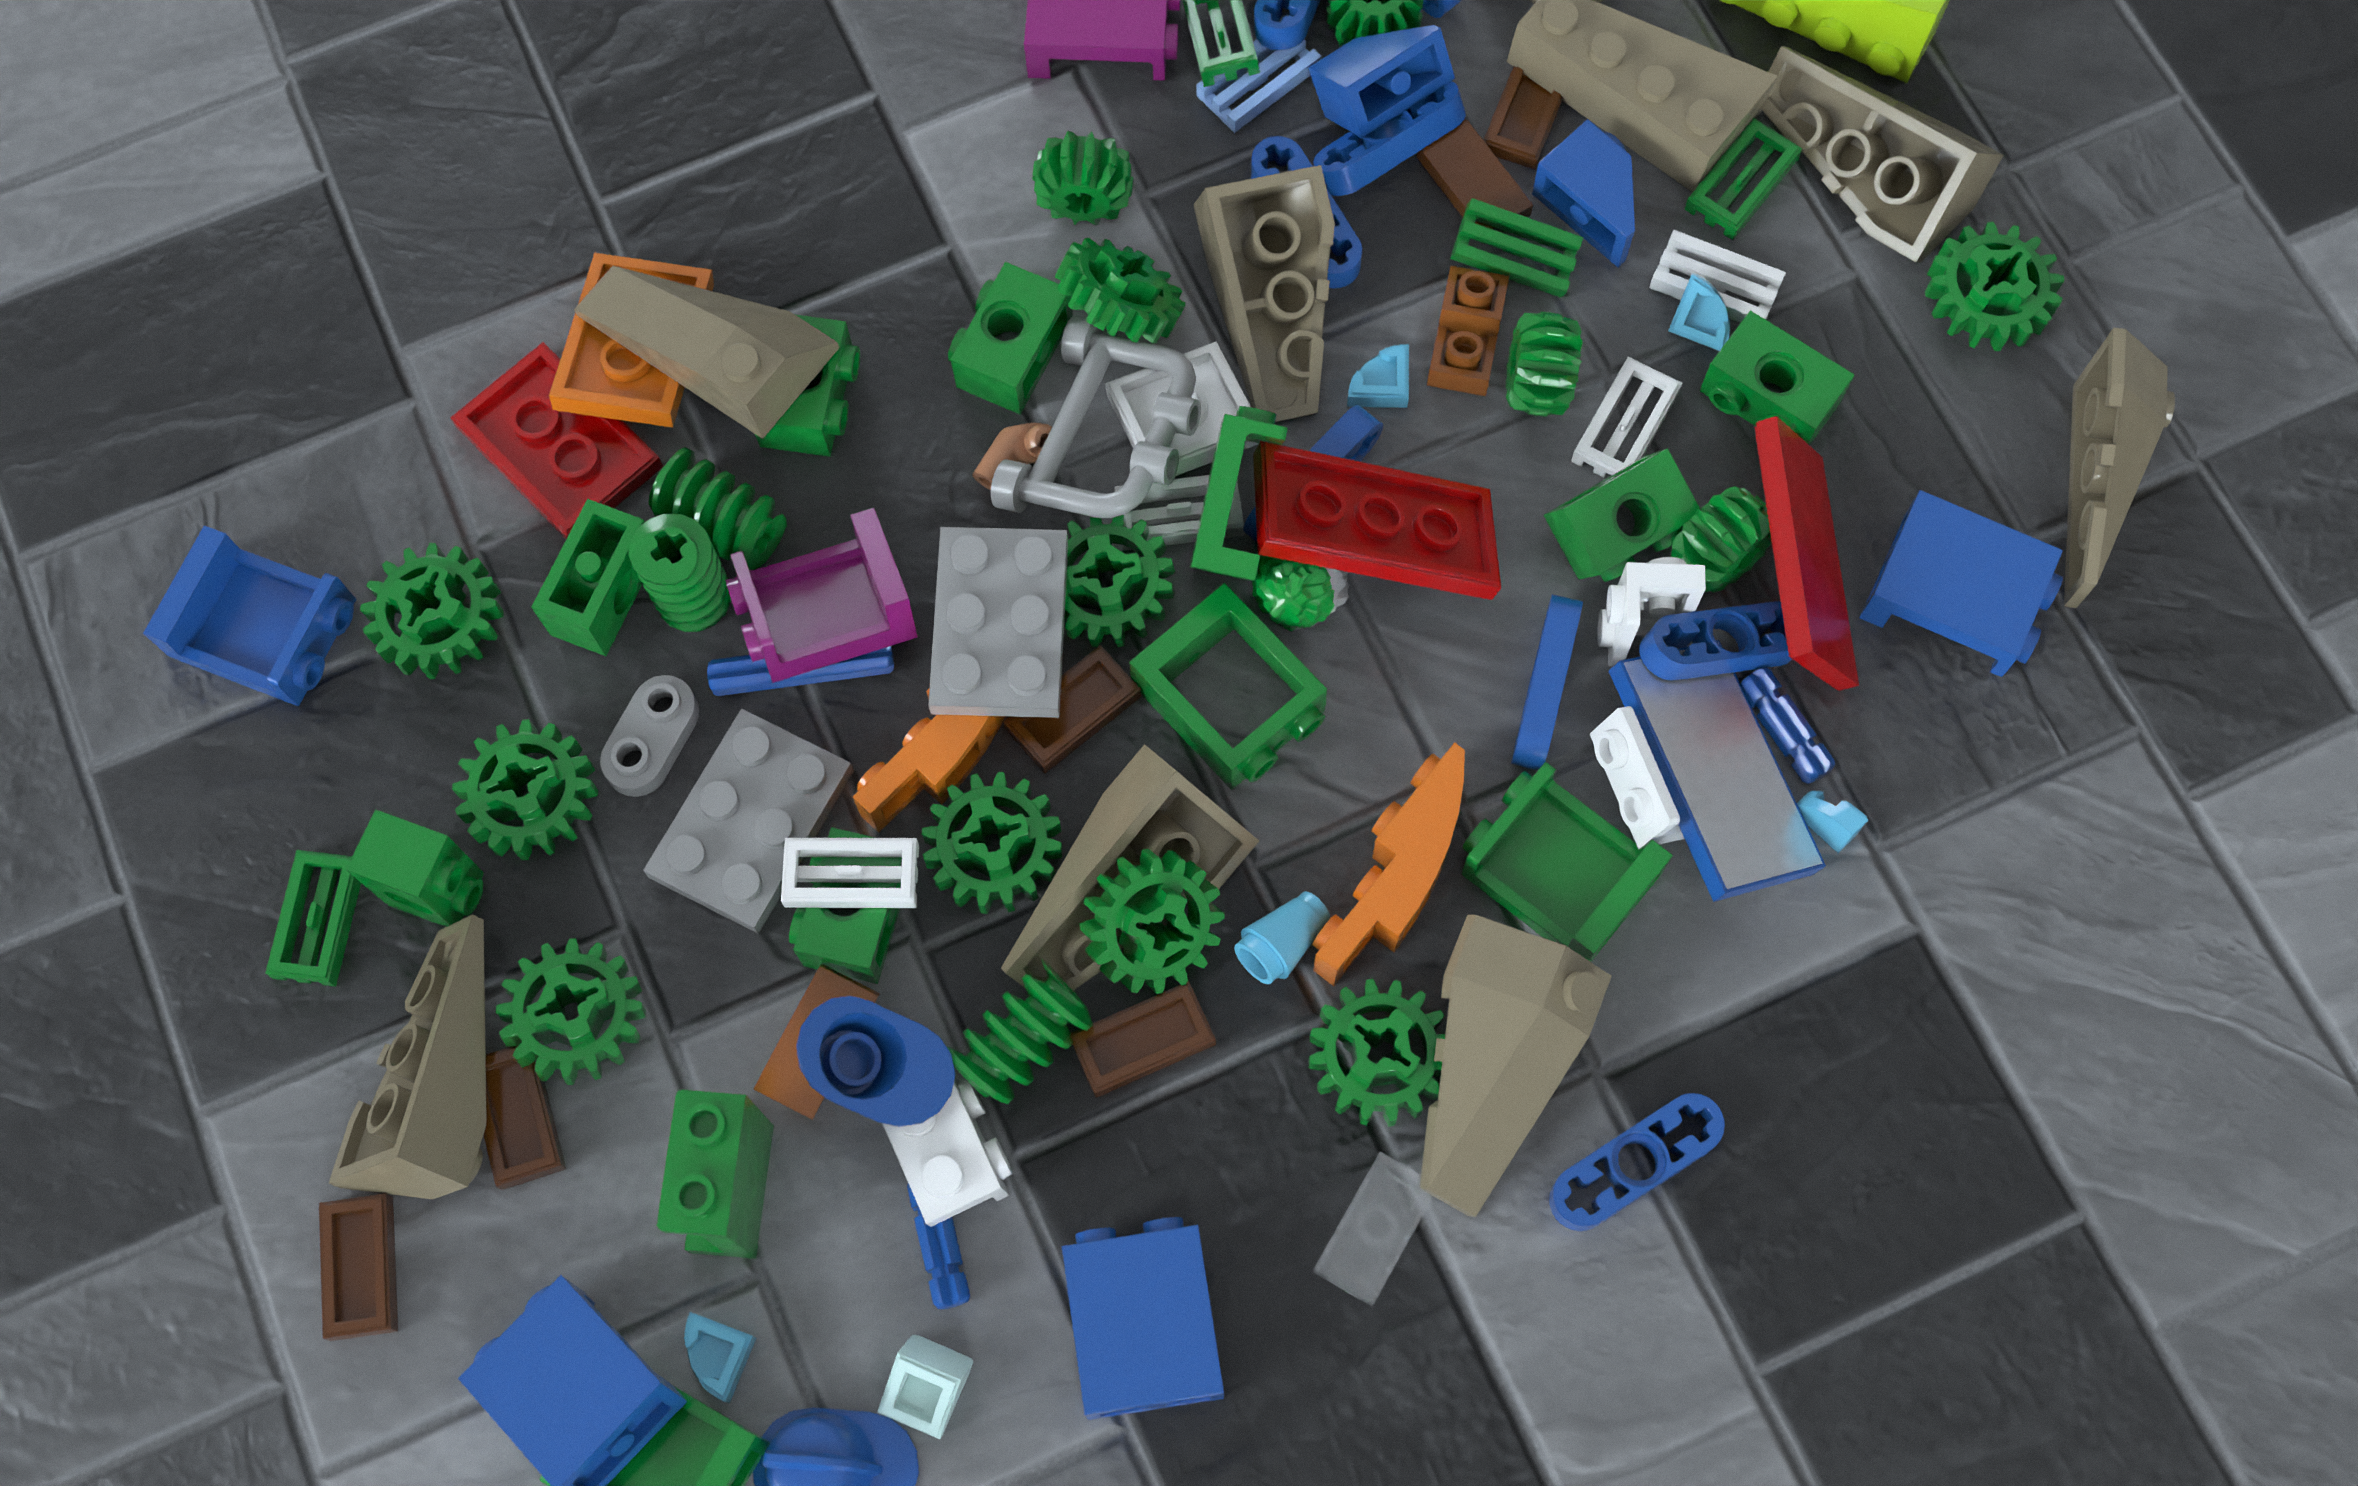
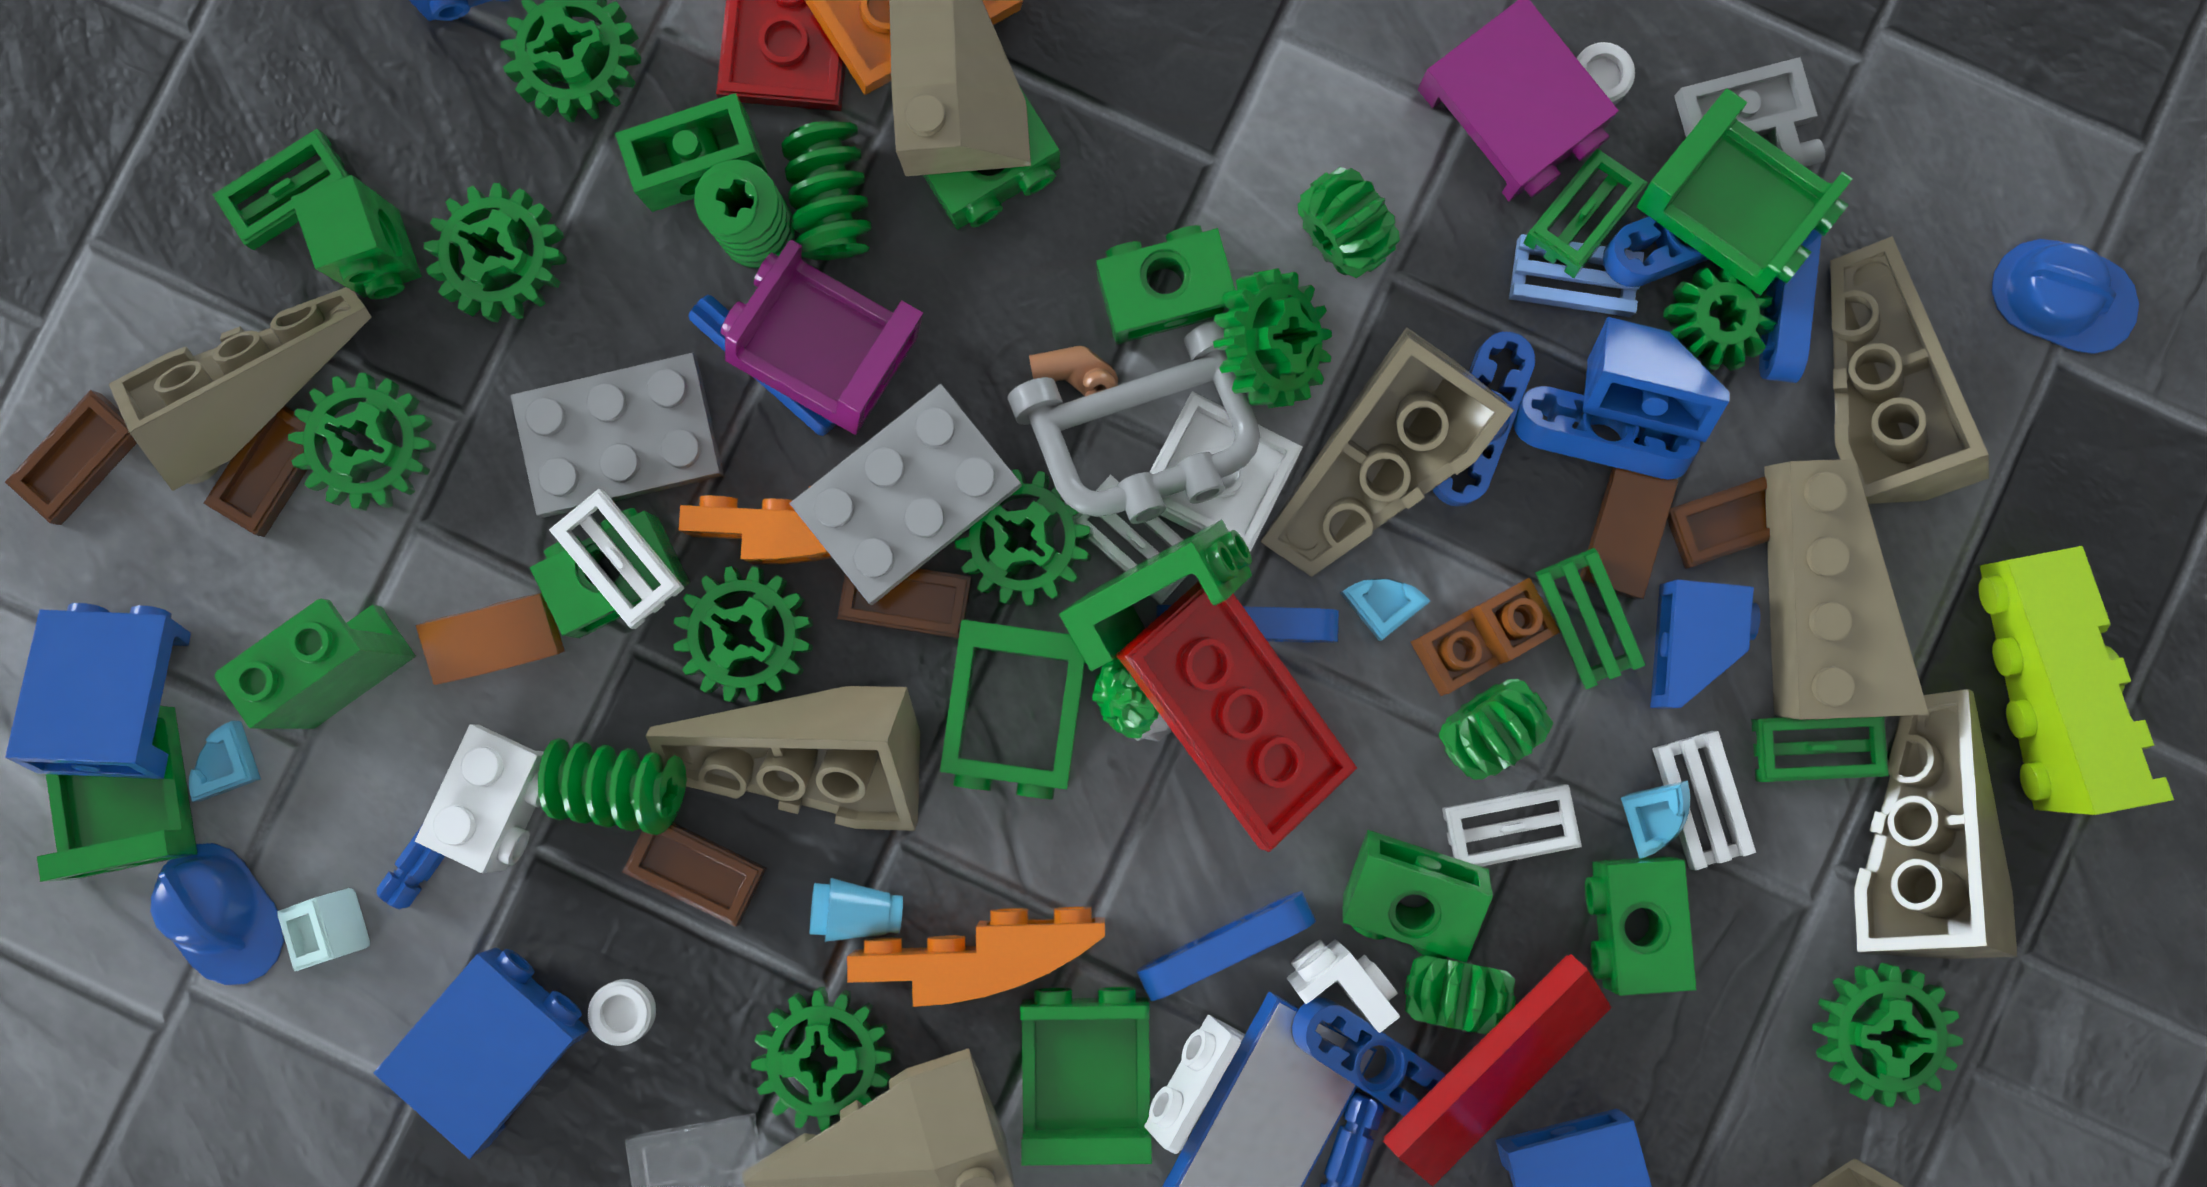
camera: 50 degrees right, 15 degrees up
(653, 733) = (616, 301): light grey plate -> none
(875, 1061) = (485, 708): blue piece -> none
(1147, 896) = (772, 811): green gear -> none
(1206, 1191) = (621, 1012): none -> white tile

